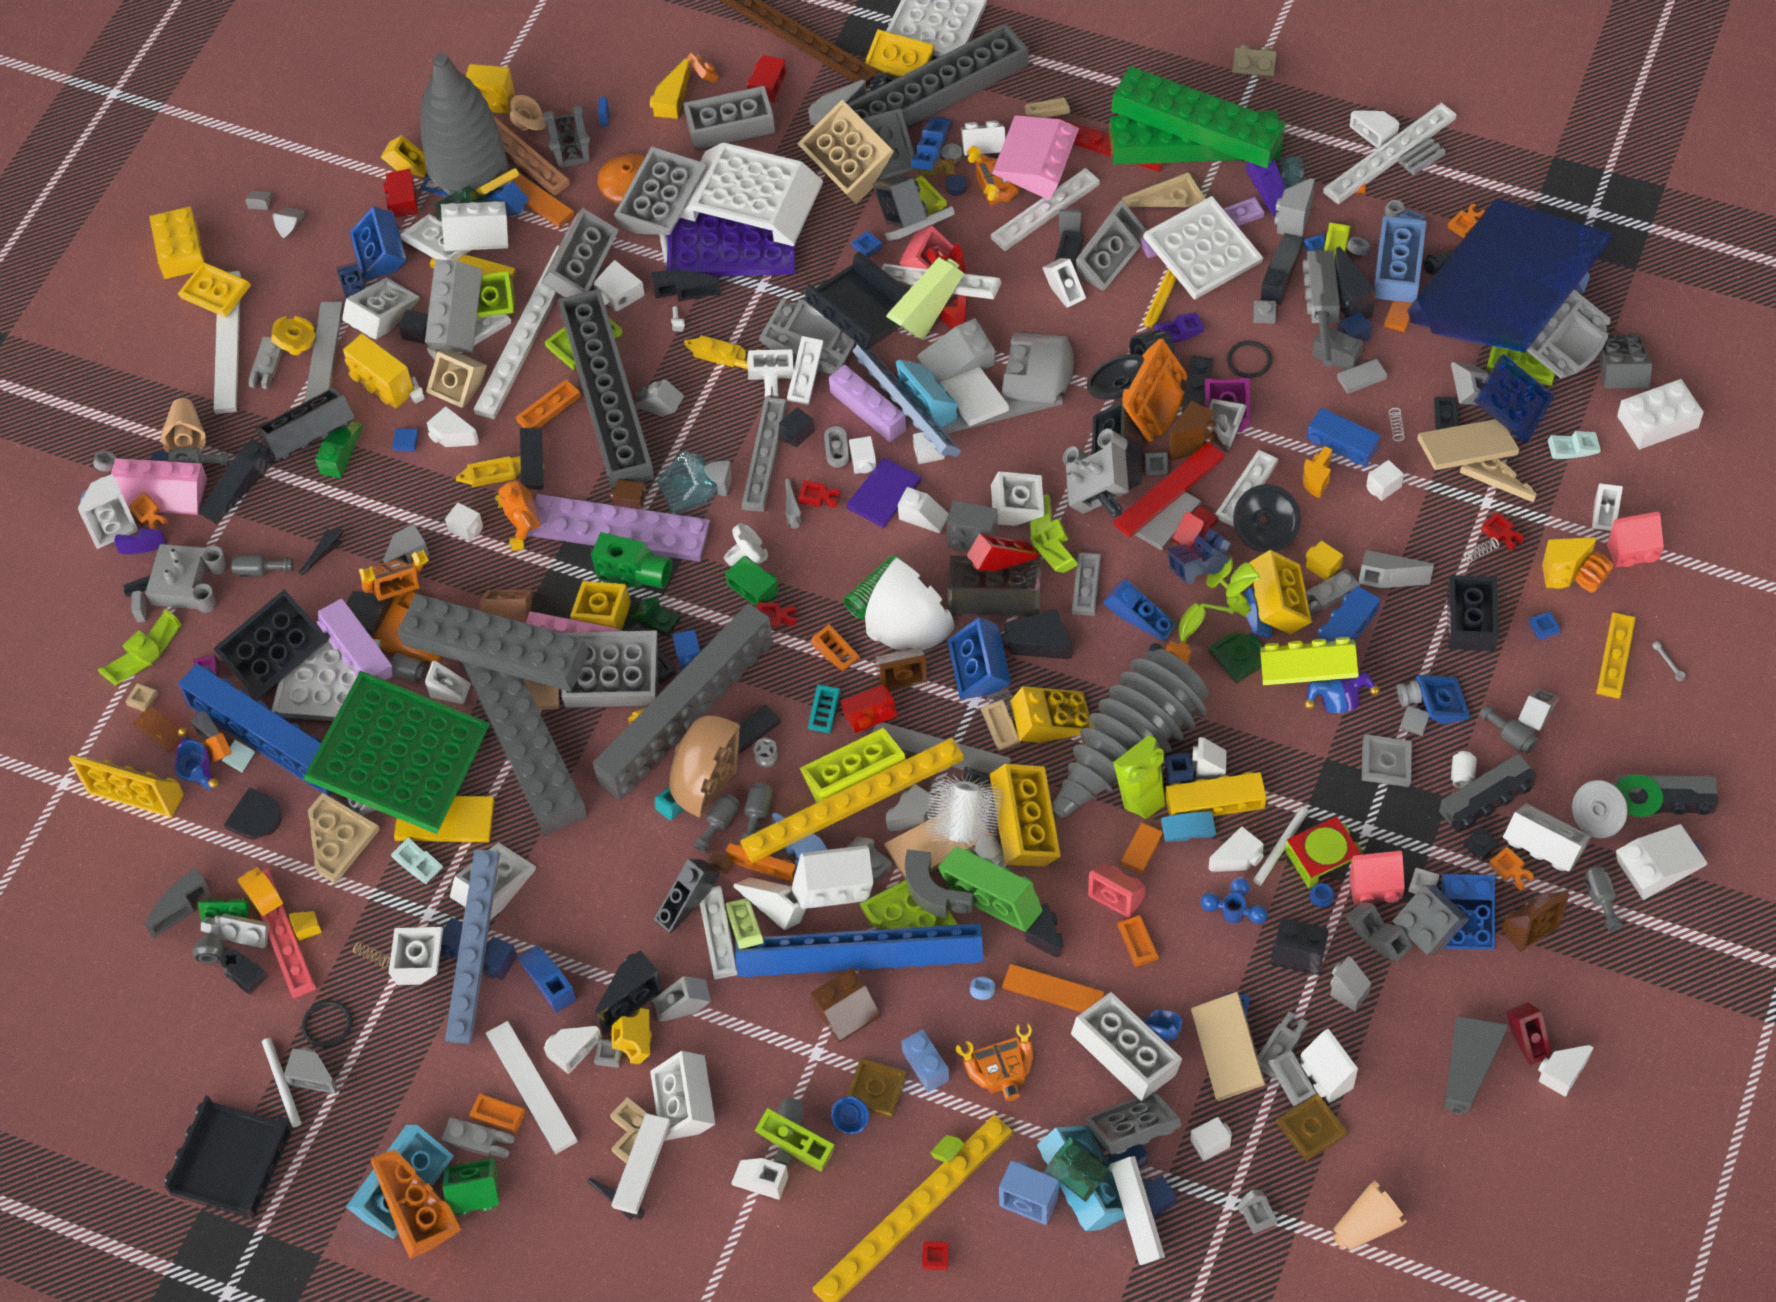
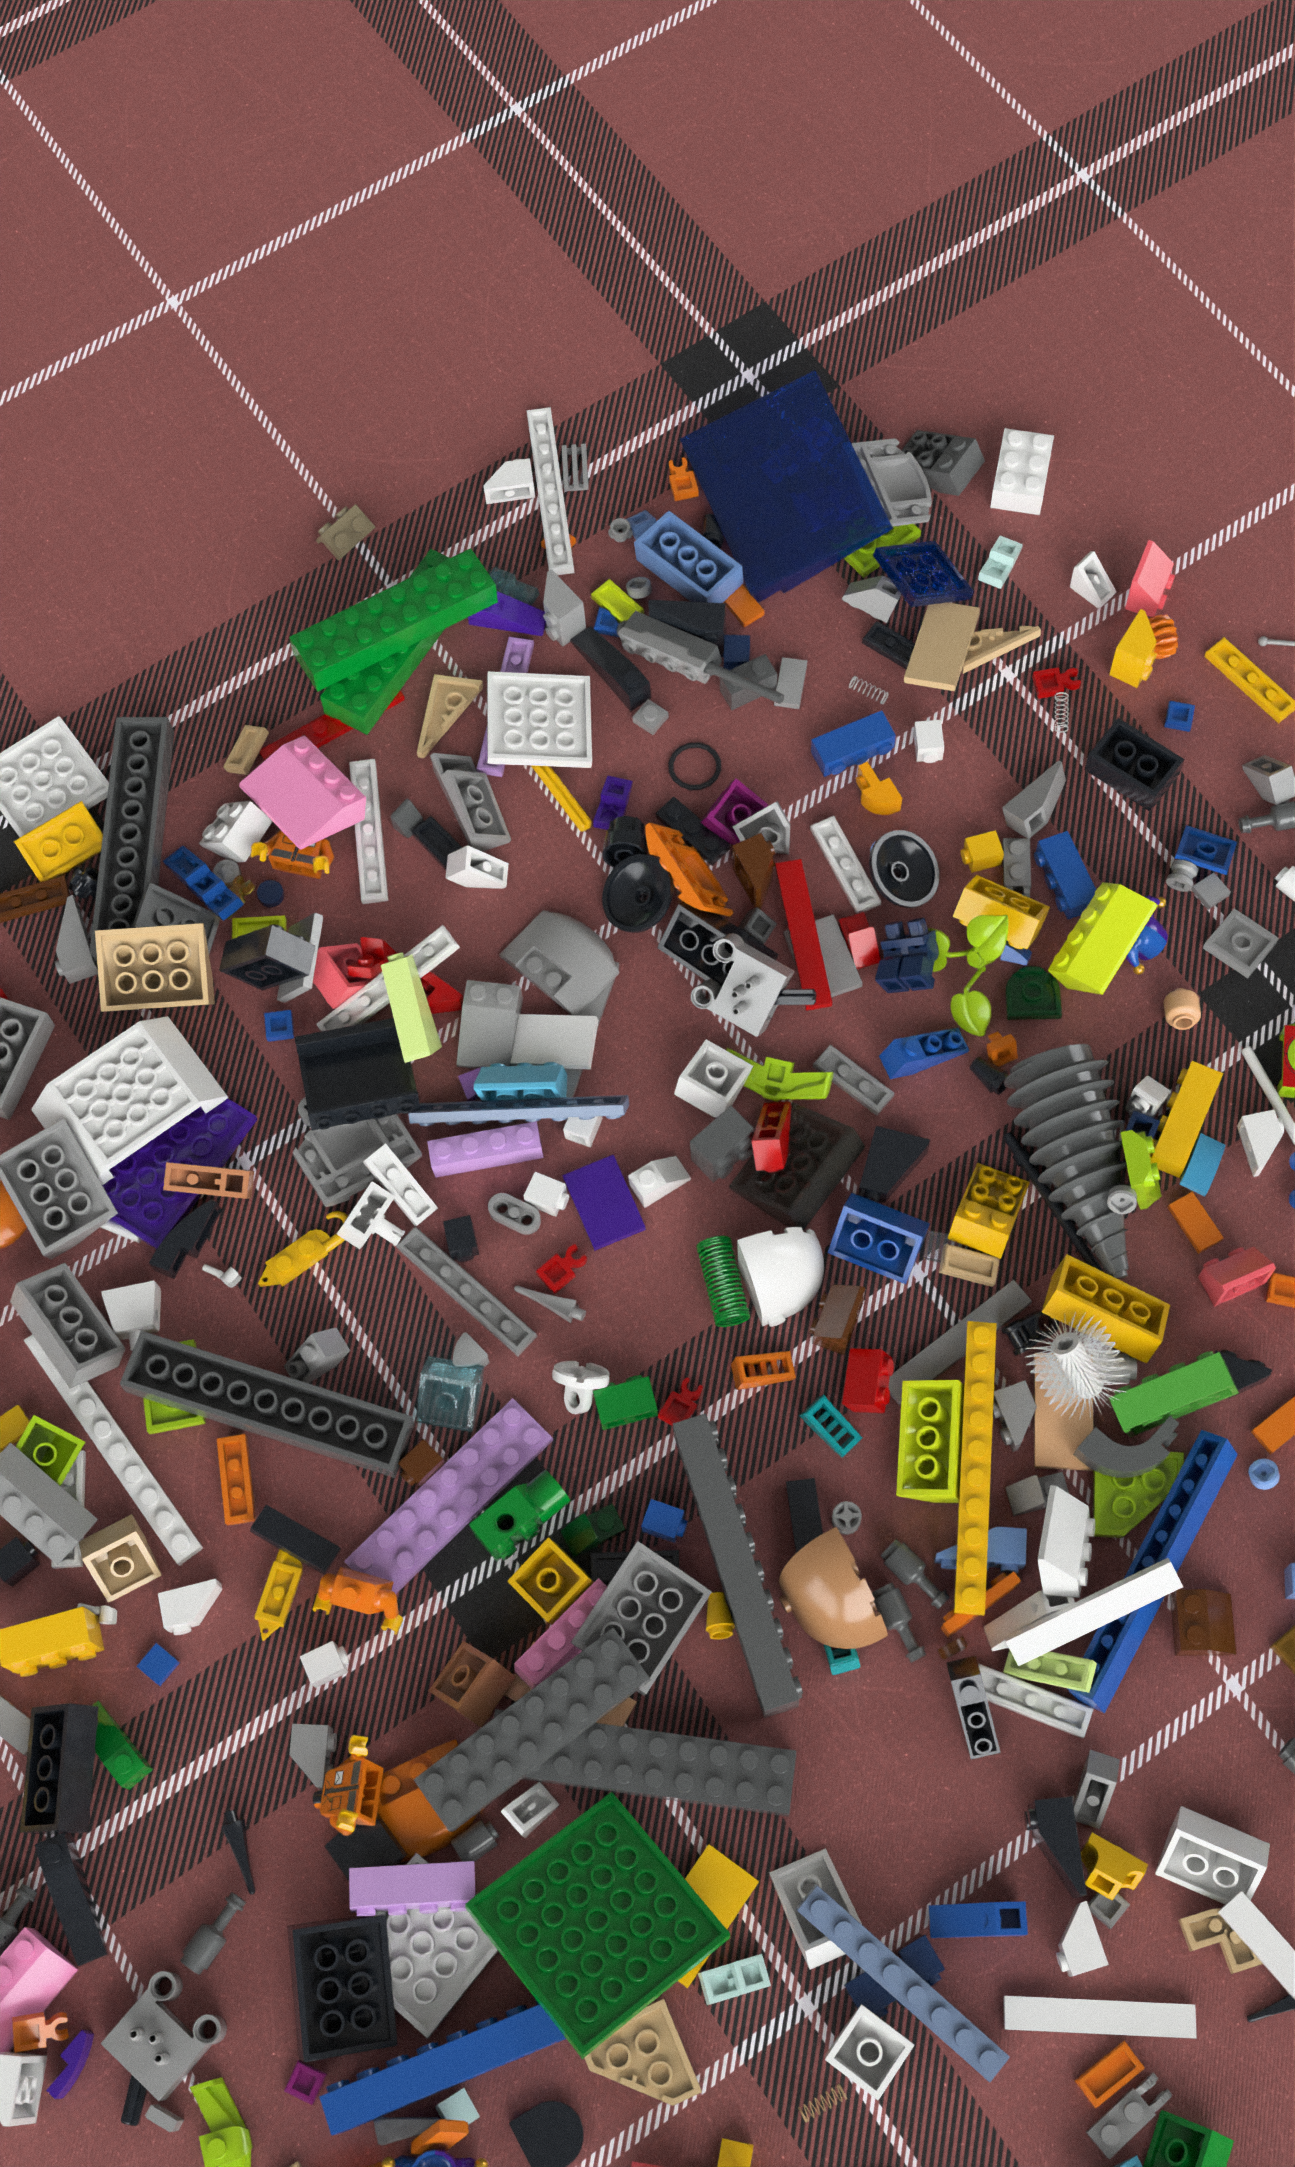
camera: 55 degrees left, 10 degrees up
(729, 269) = (208, 1180): none -> nougat slope
(797, 919) = (1093, 1611): none -> white tile
(1103, 767) = (1122, 1199): none -> light grey tile
(1300, 749) = (1182, 1009): none -> light nougat head

